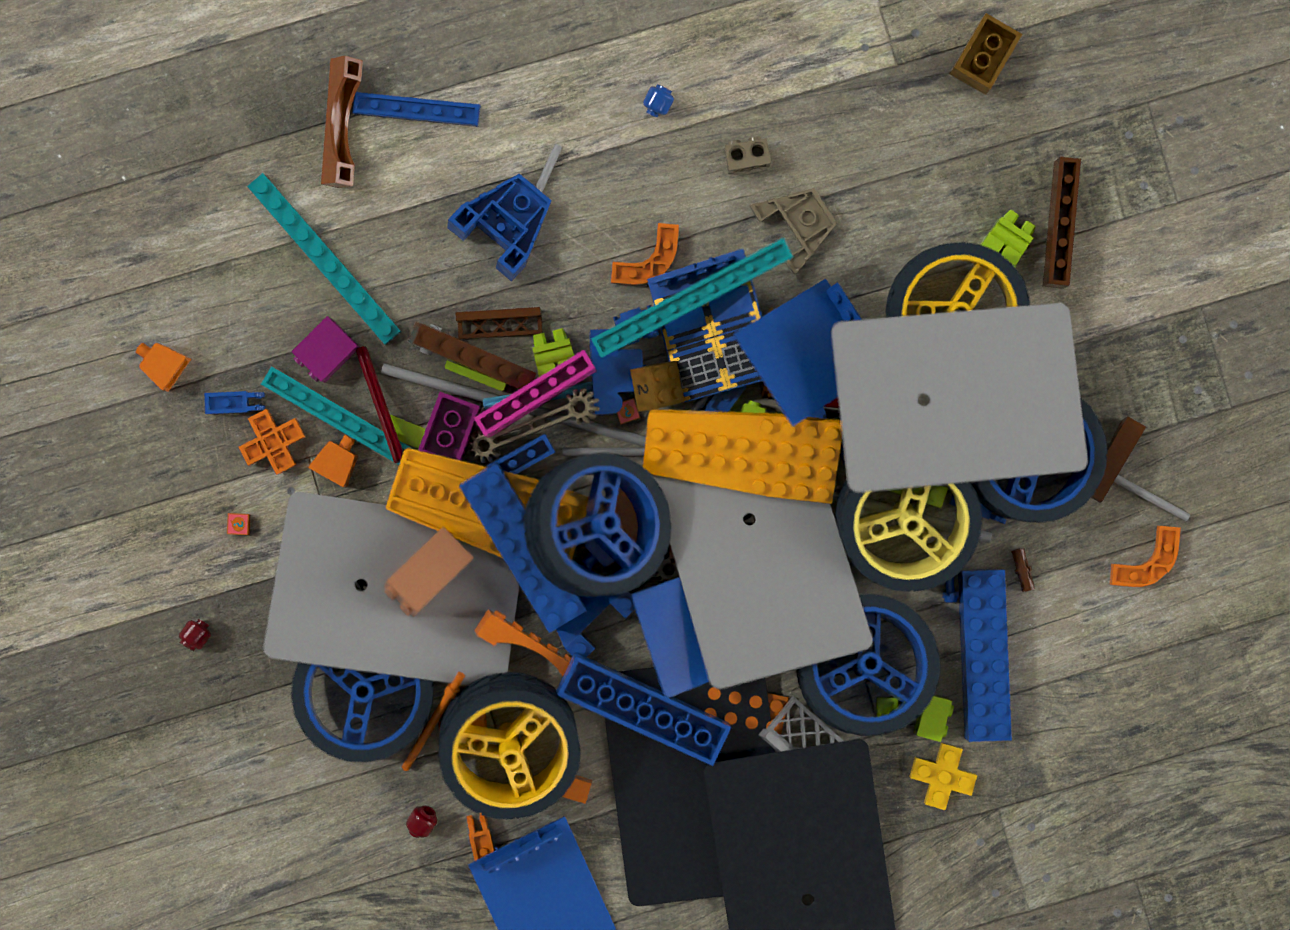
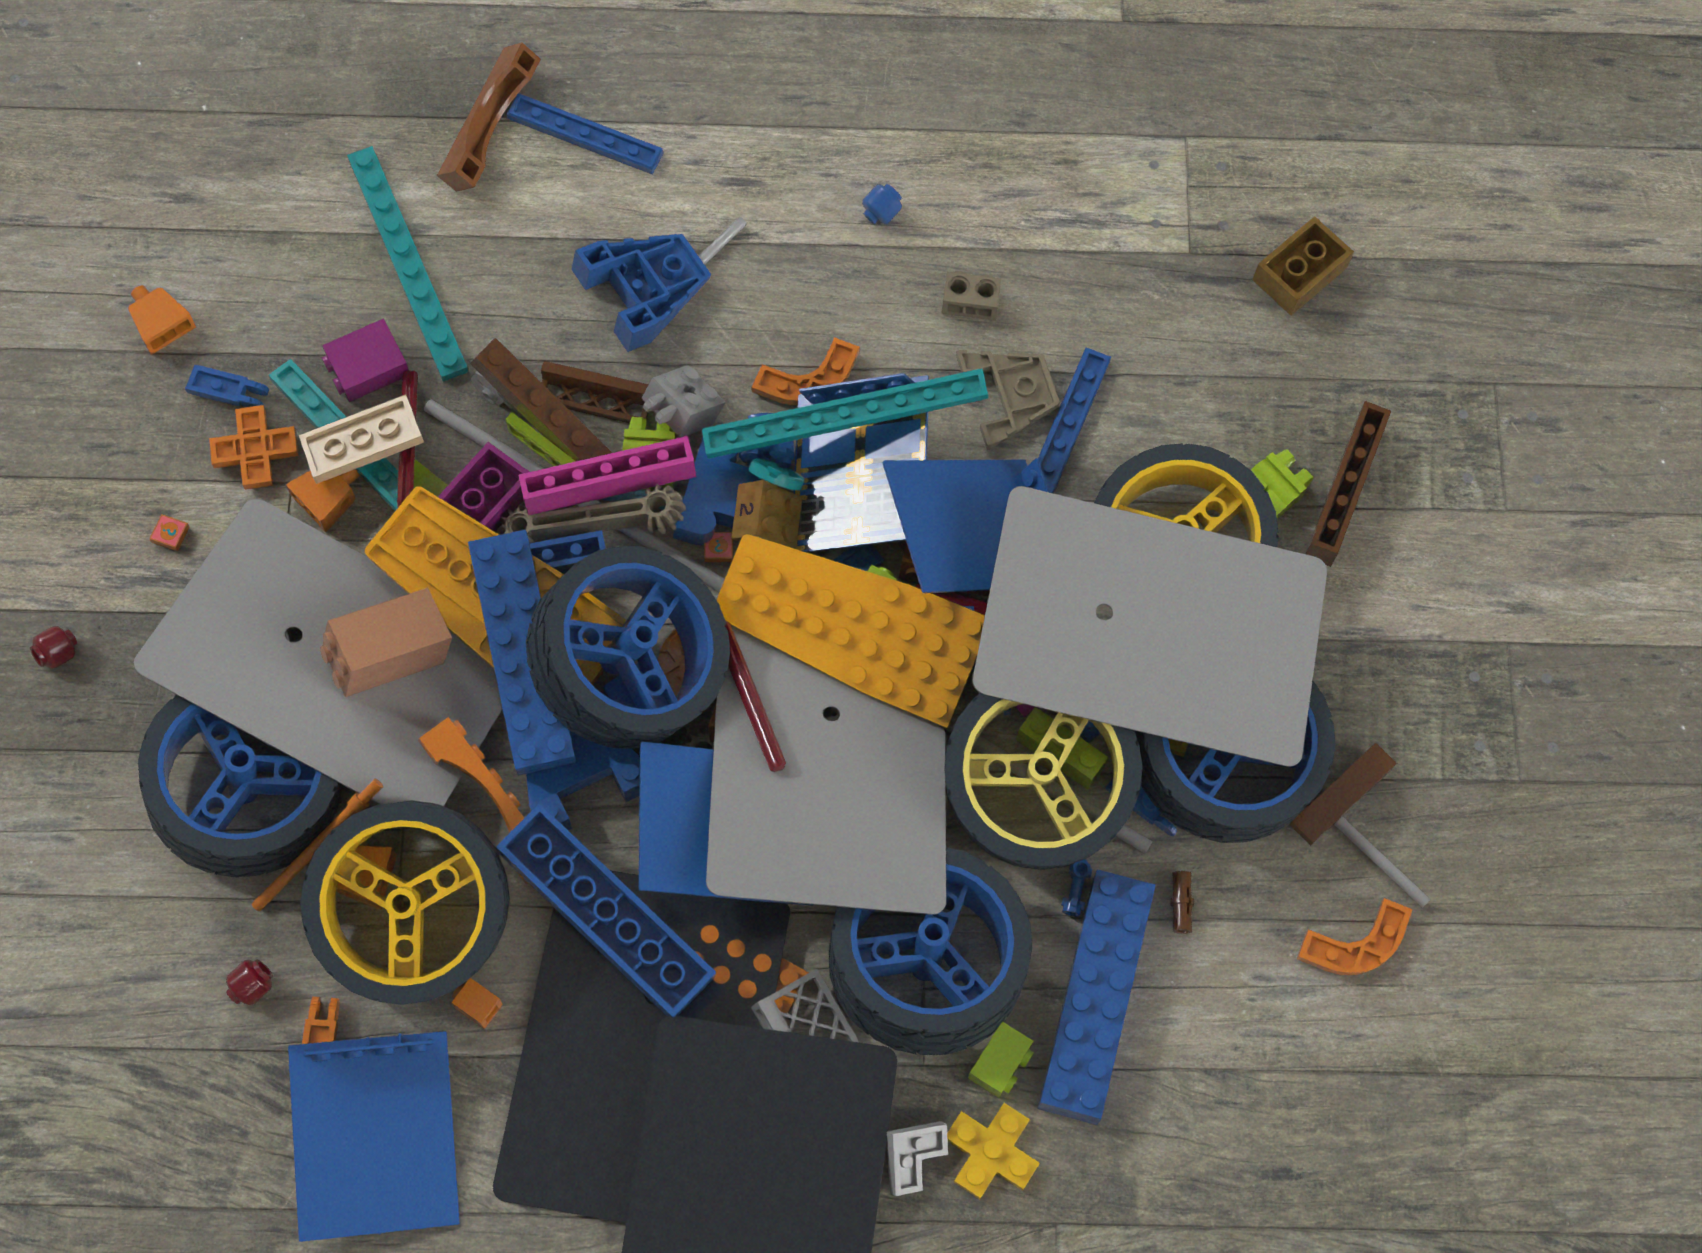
camera: 10 degrees right, 20 degrees down
(349, 419) = (361, 439): none -> tan plate
(566, 313) = (682, 401): none -> light grey hinge
(654, 353) = (774, 474): none -> teal tile
(695, 533) = (754, 705): none -> dark red axle
(847, 230) = (1072, 415): none -> blue tile
(890, 797) = (907, 1149): none -> light grey plate

